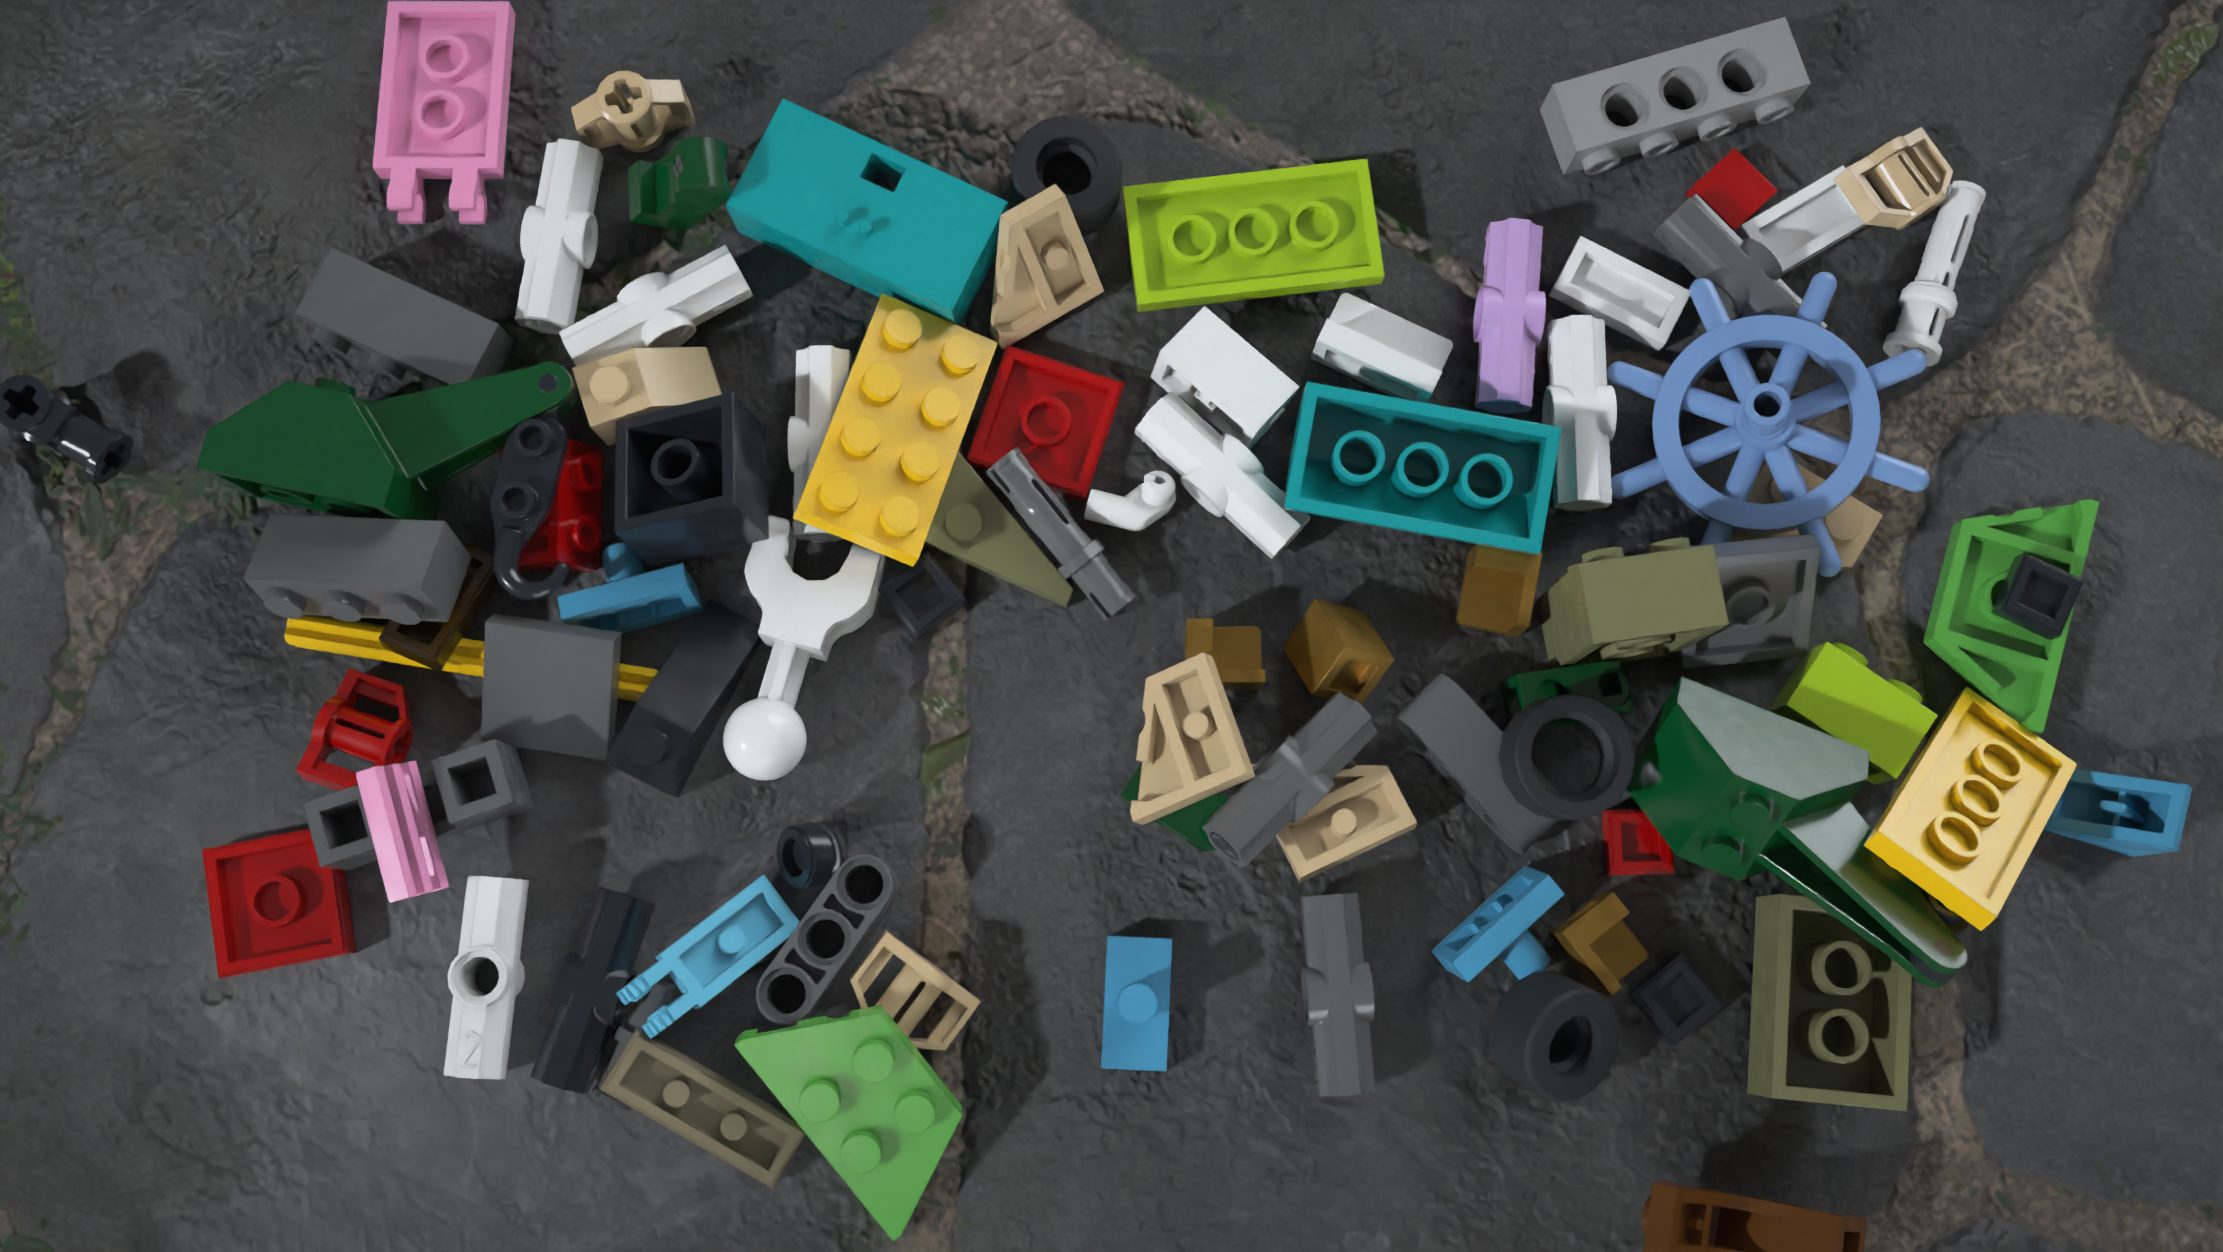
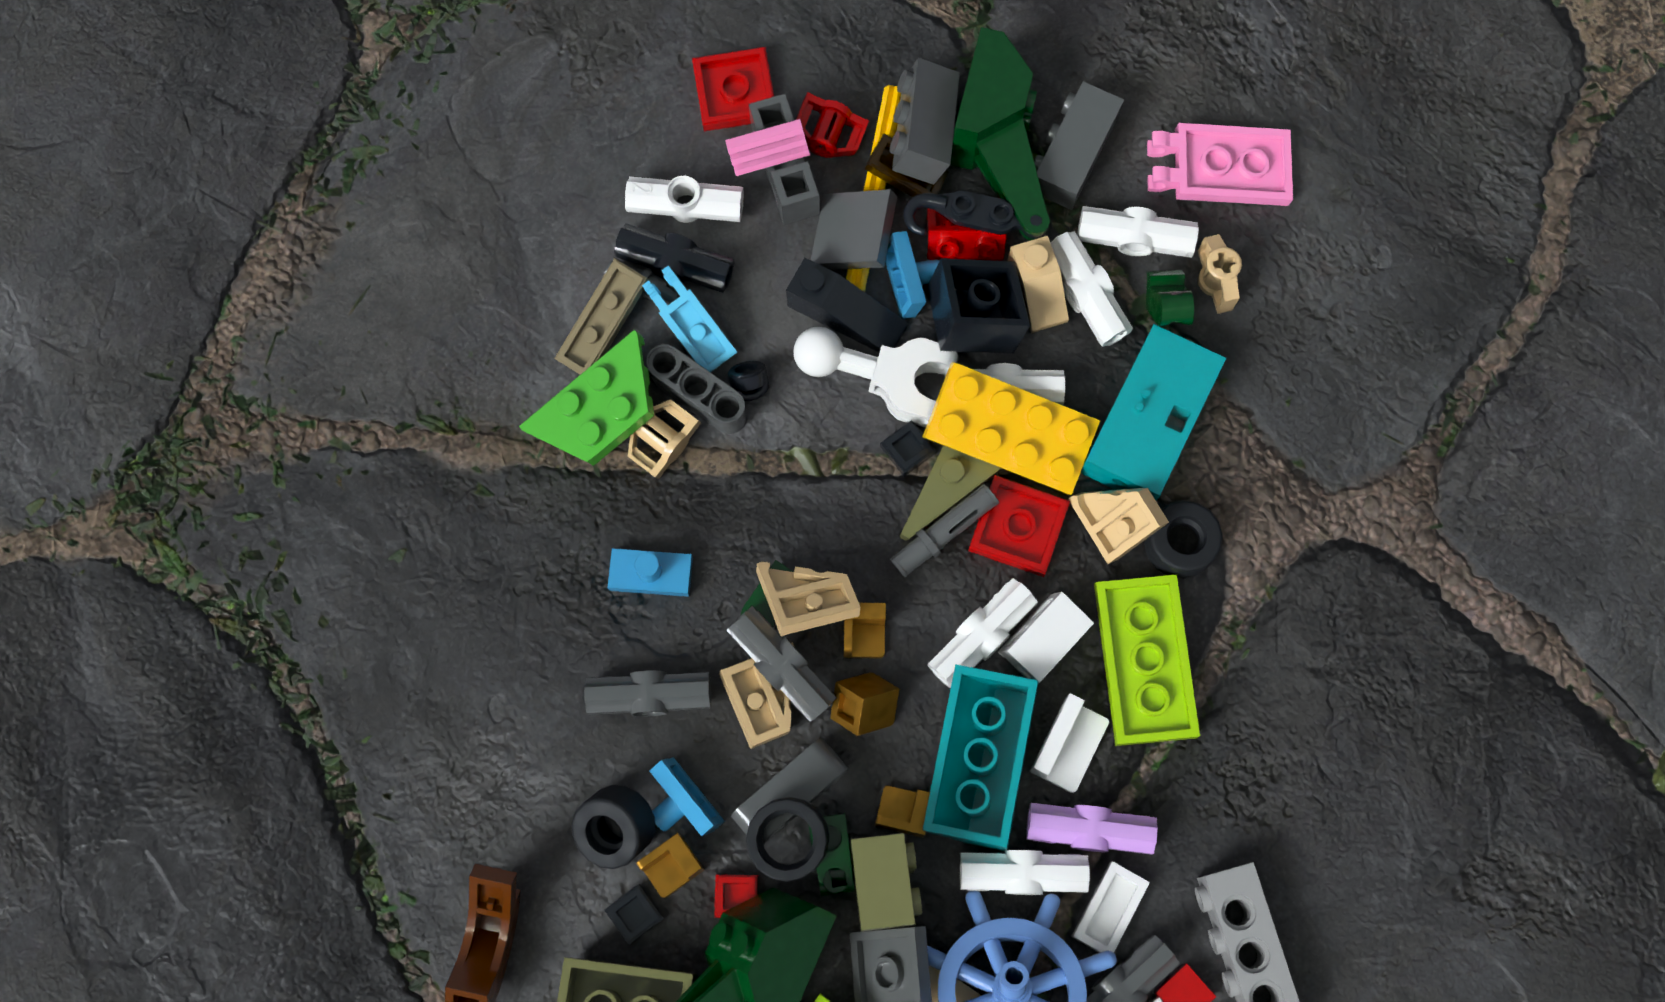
camera: 95 degrees right, 5 degrees down
(1137, 508) = (962, 581): white arm -> none

